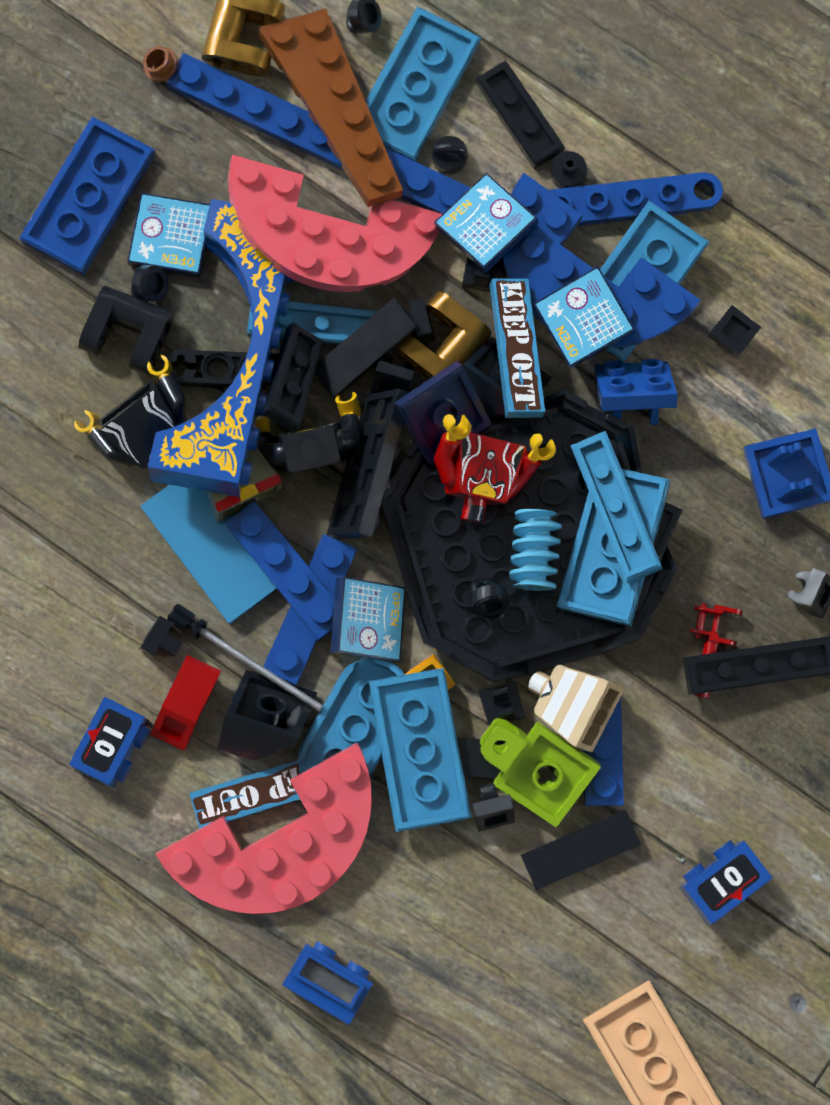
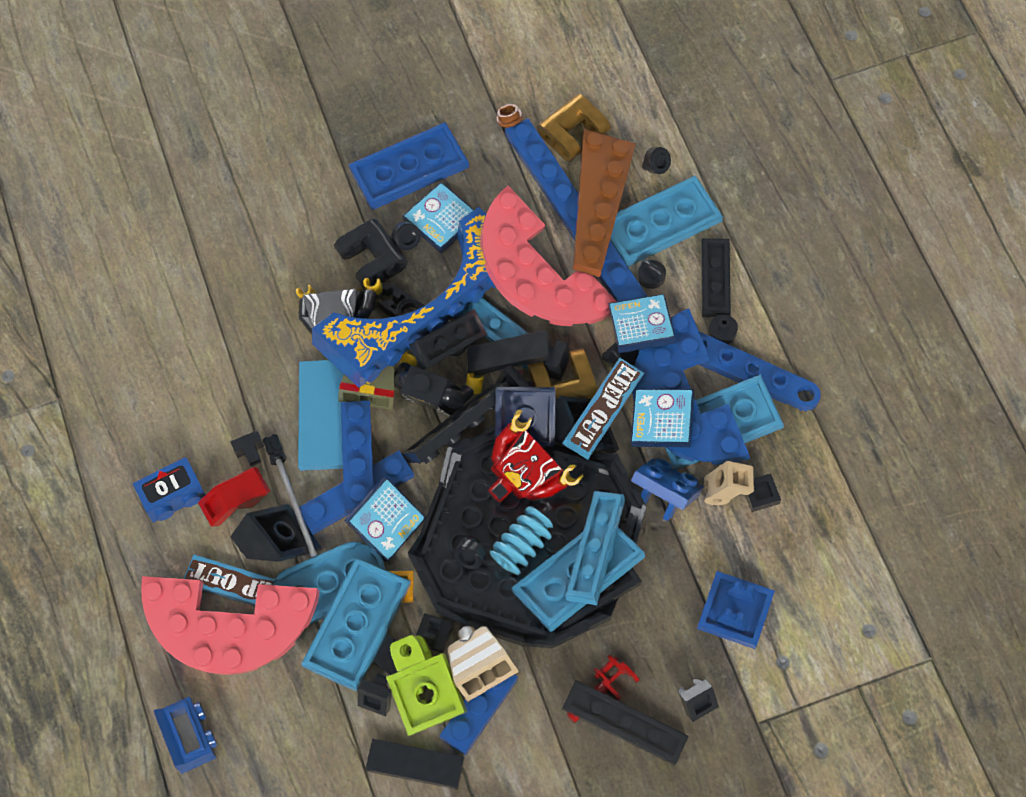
camera: 40 degrees right, 15 degrees down
(697, 344) = (728, 482): none -> tan leg

